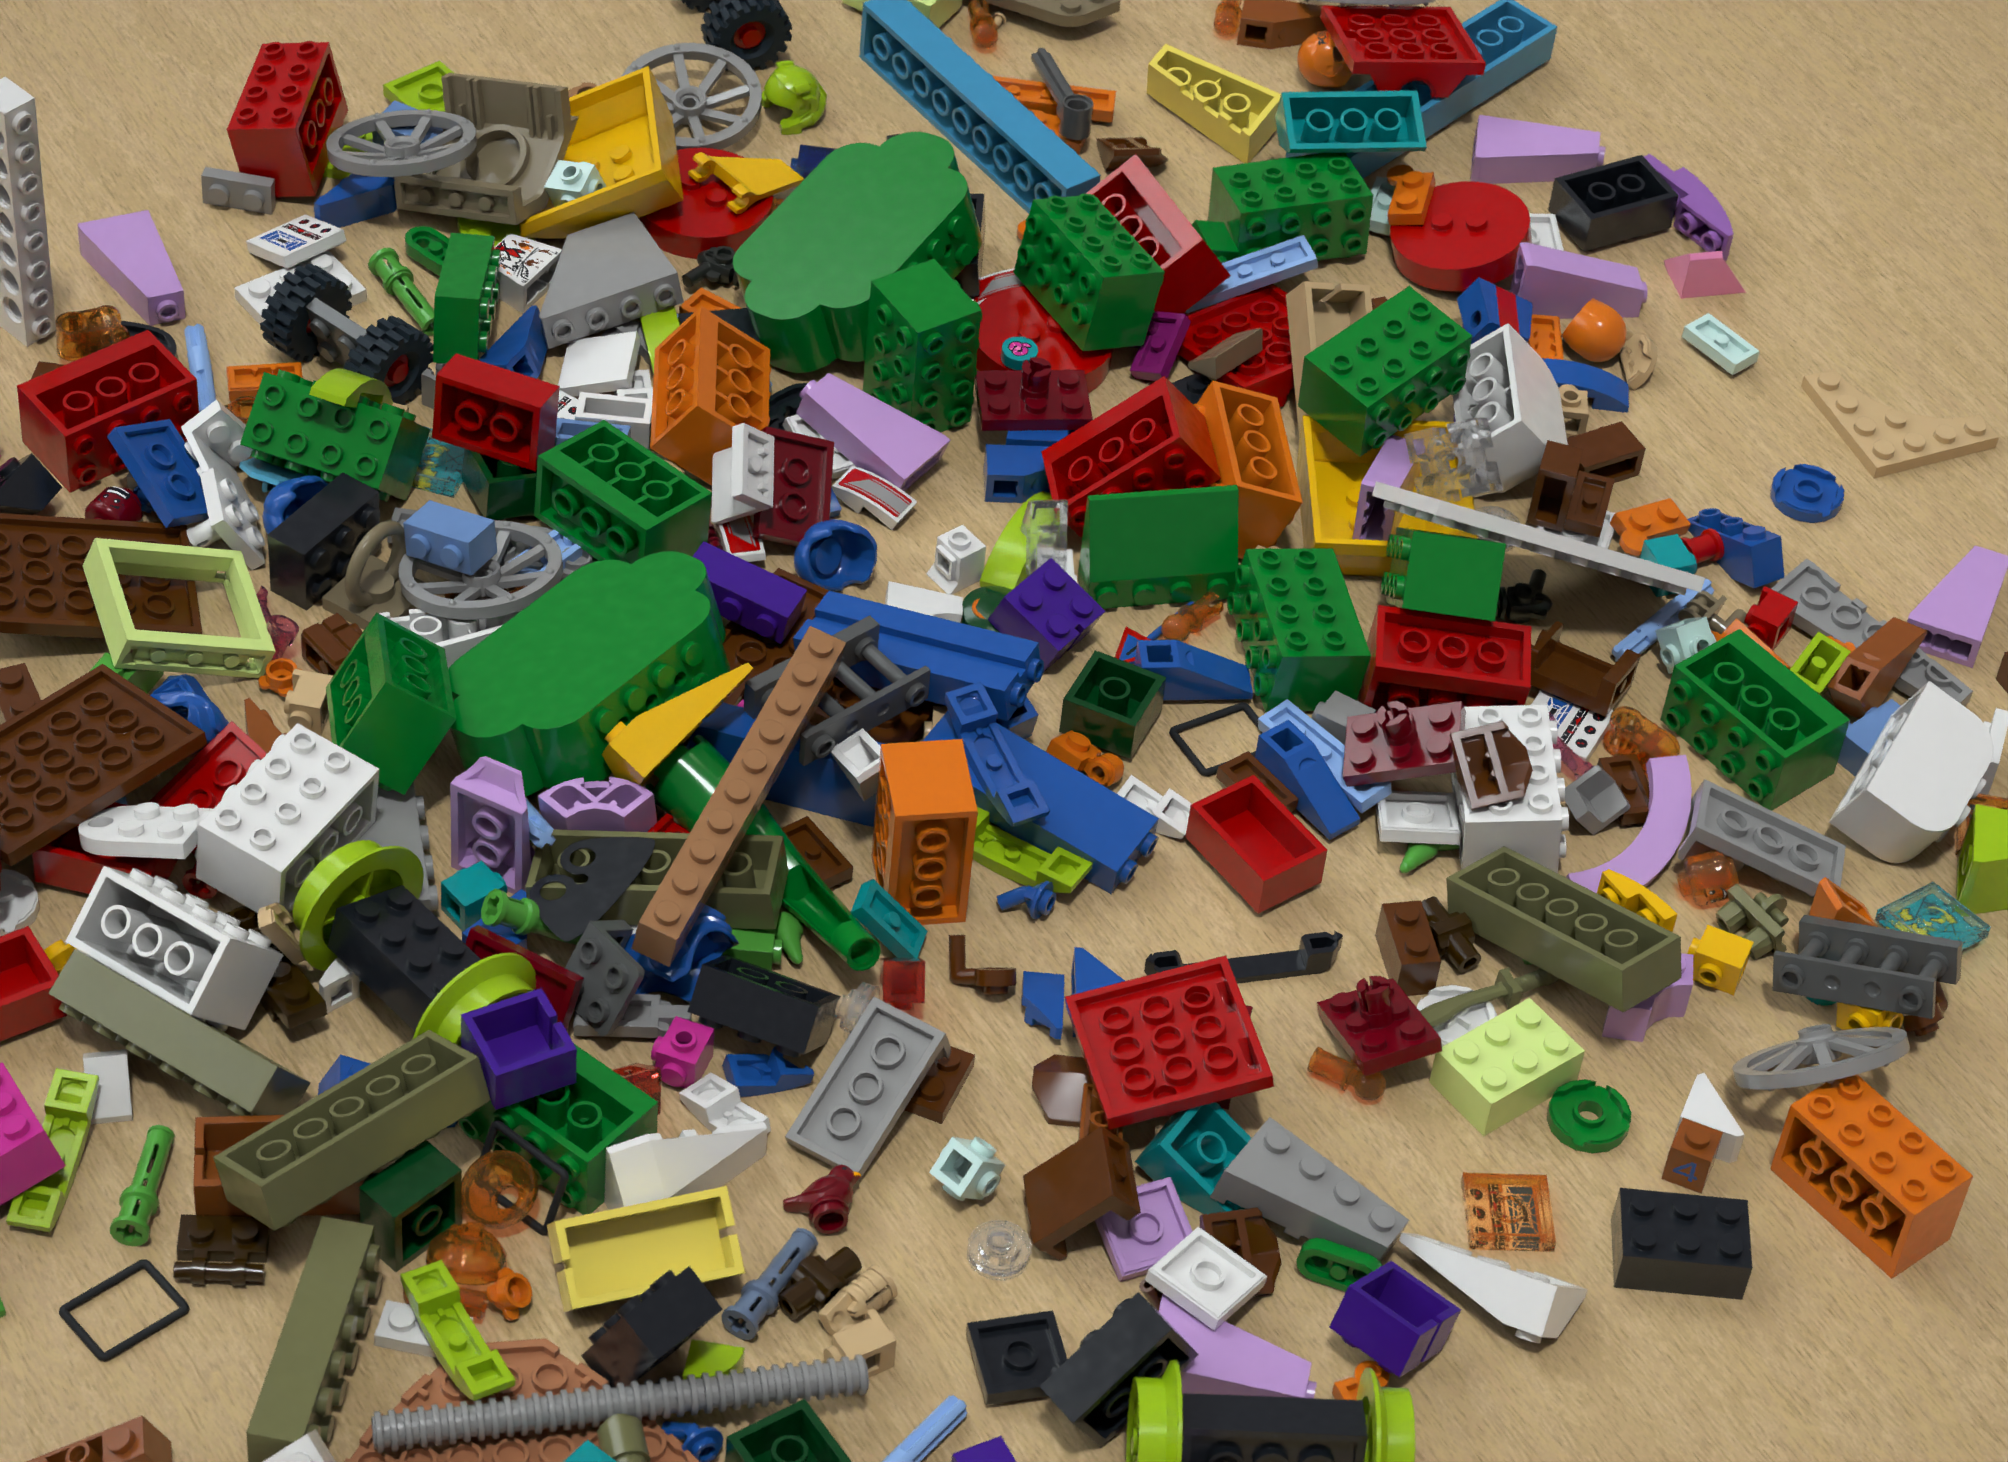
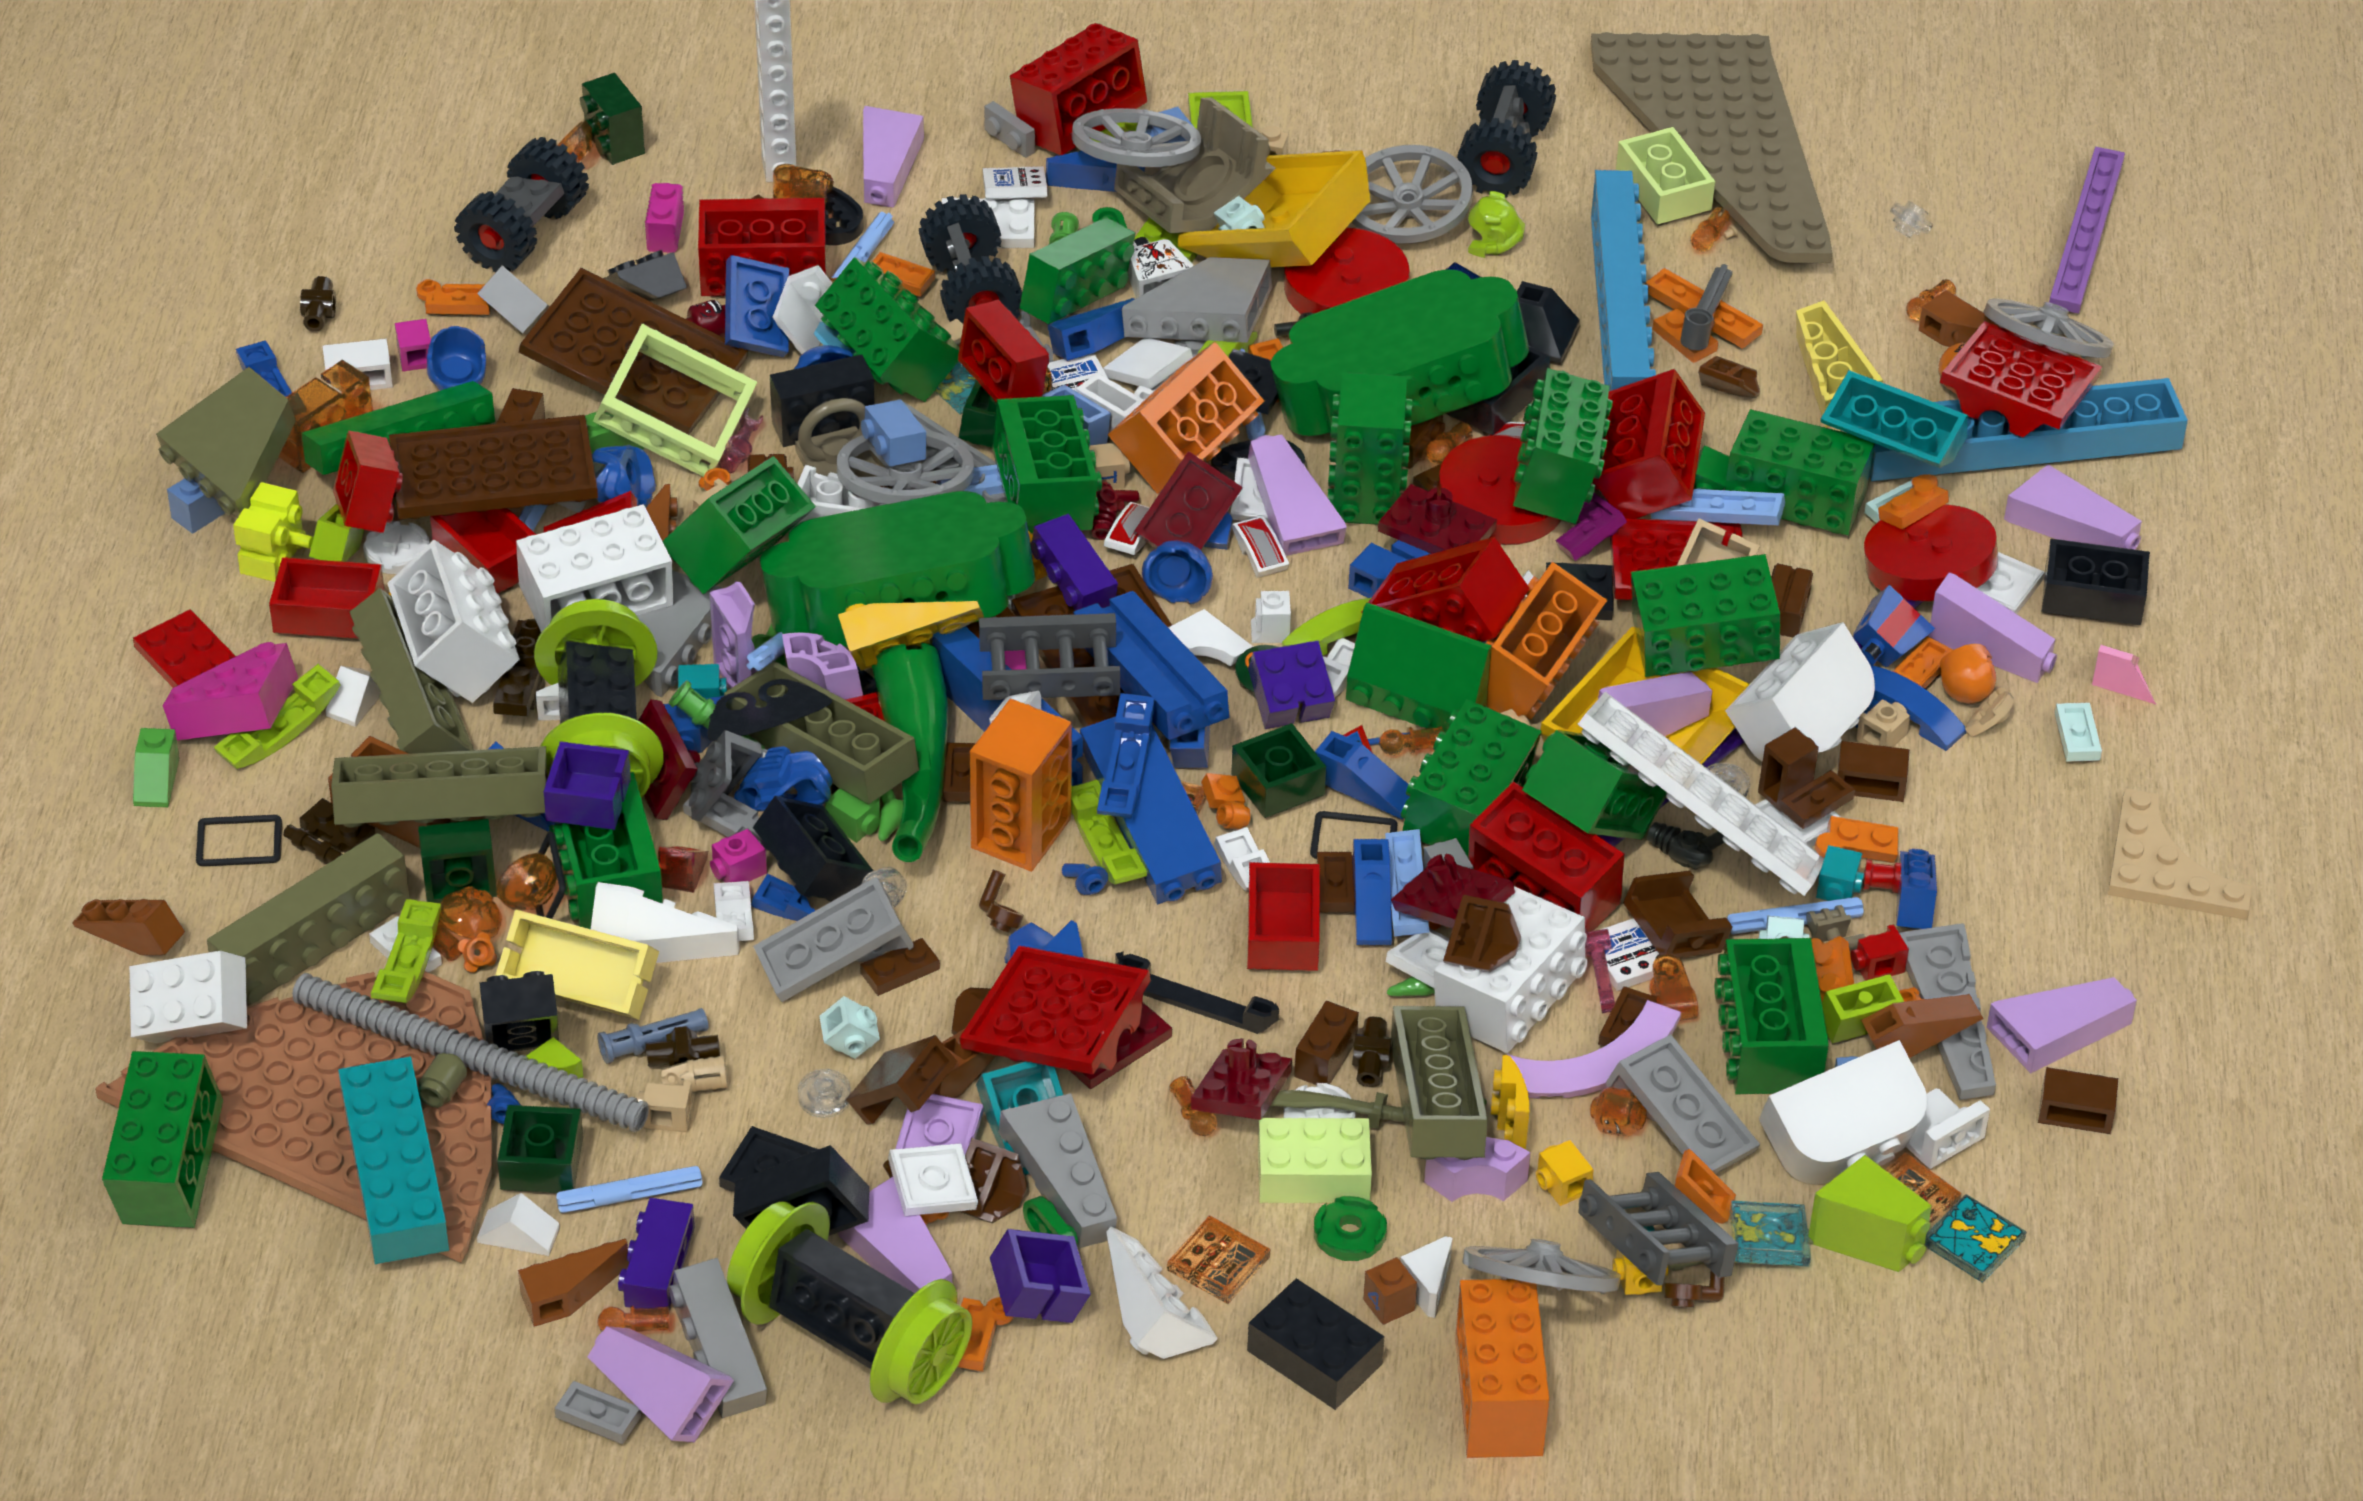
camera: 40 degrees right, 0 degrees up
(142, 831) = (494, 533): white plate -> none
(156, 1147) = (306, 775): bright green pin -> none
(228, 519) = (770, 351): white plate -> none
(273, 924) = (524, 635): tan plate -> none
(346, 386) = (892, 287): lime slope -> none
(738, 797) = (896, 690): medium nougat brick -> none
(743, 475) = (1146, 478): white bracket -> none
(748, 177) = (1382, 266): yellow flag -> none
(826, 1200) = (741, 1000): dark red animal -> none
(888, 920) = (960, 840): teal plate -> none
(902, 982) = (930, 884): clear red brick -> none
(1016, 351) = (1462, 486): teal tile -> none
(1045, 533) = (1339, 626): clear slope -> none
(1228, 354) = (1630, 559): dark tan slope -> none
(1435, 449) = (1702, 710): clear brick -> none
(1595, 799) = (1583, 1012): light grey panel -> none
(1697, 209) = (2168, 614): medium lavender slope -> none
(1761, 915) = (1628, 1160): olive hips -> none
(1807, 493) = (2030, 878): blue tile -> none

